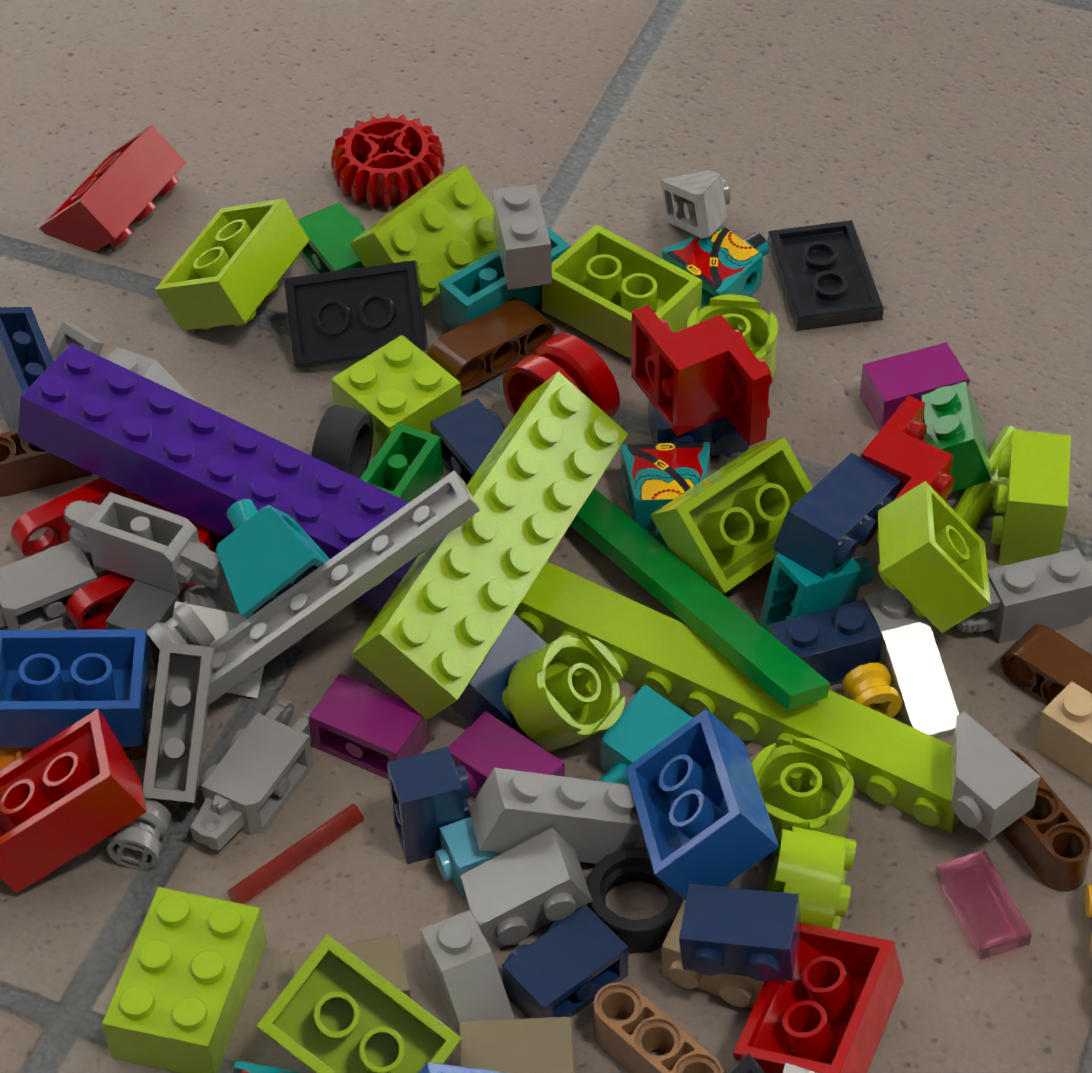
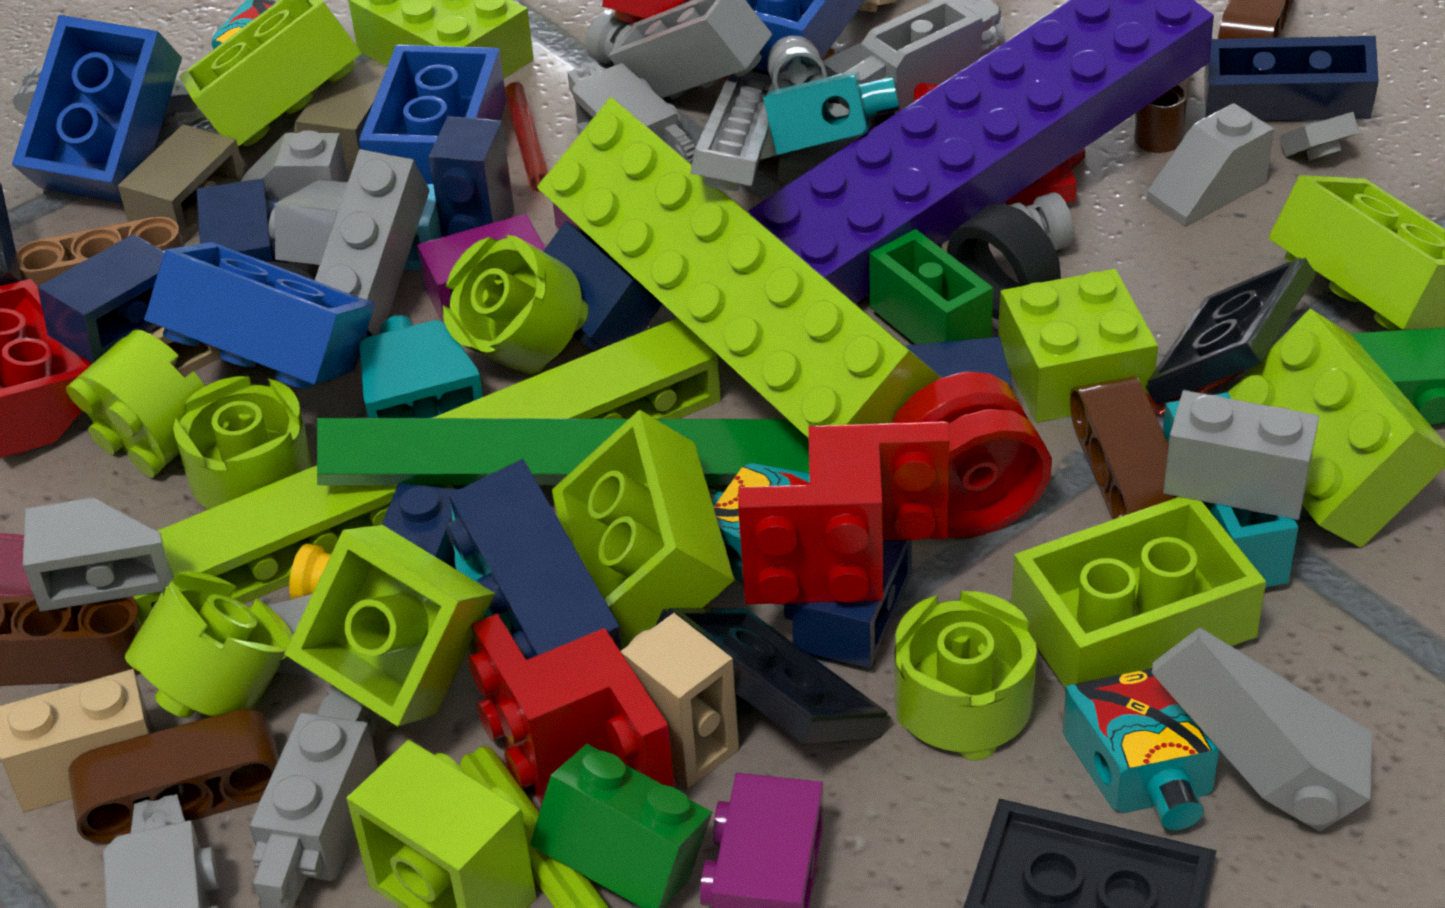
camera: 120 degrees right, 5 degrees down
(342, 885) = (425, 88): none -> blue brick
(806, 410) = (785, 679): none -> black tile
(852, 426) = (692, 690): none -> tan brick
(993, 684) = (208, 647): none -> lime brick

